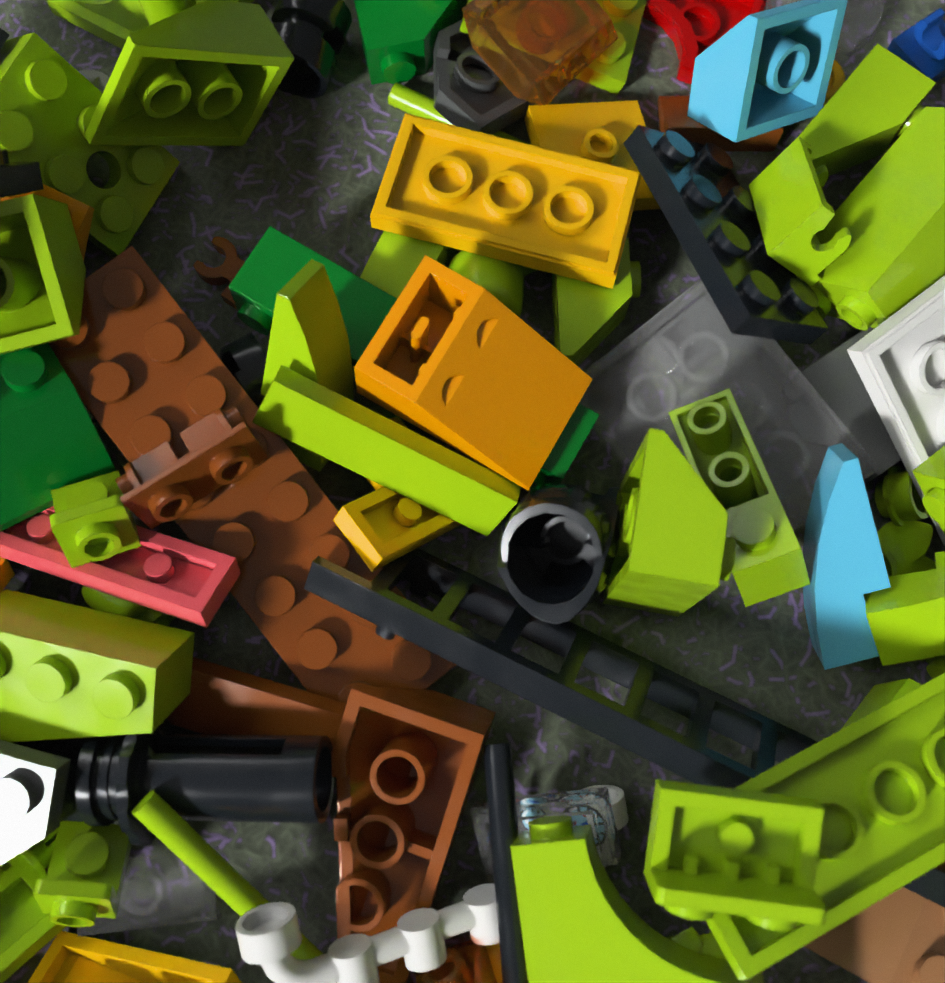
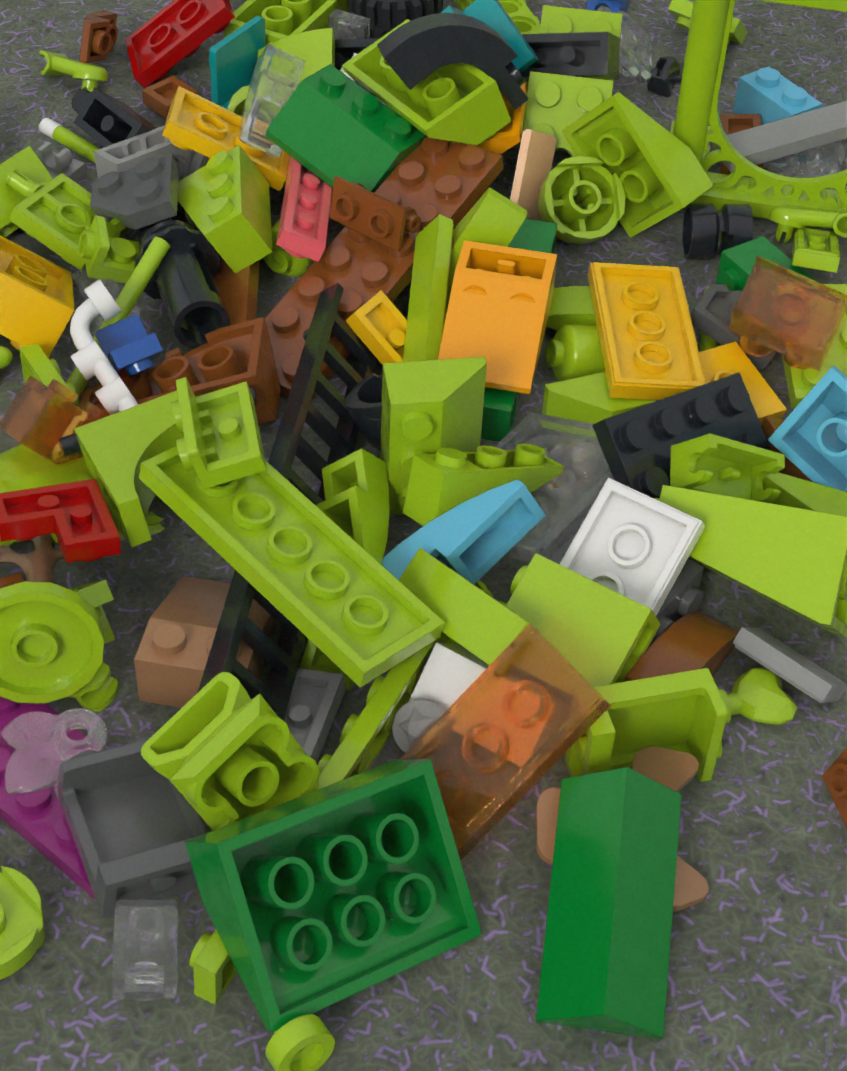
camera: 70 degrees right, 30 degrees down
(92, 520) = (315, 182): lime bracket -> none
(119, 219) = (532, 167): none -> light nougat slope
(201, 178) = (581, 200): none -> lime cylinder
(333, 893) = (129, 346): none -> blue bracket
(753, 674) = (359, 499): none -> lime slope

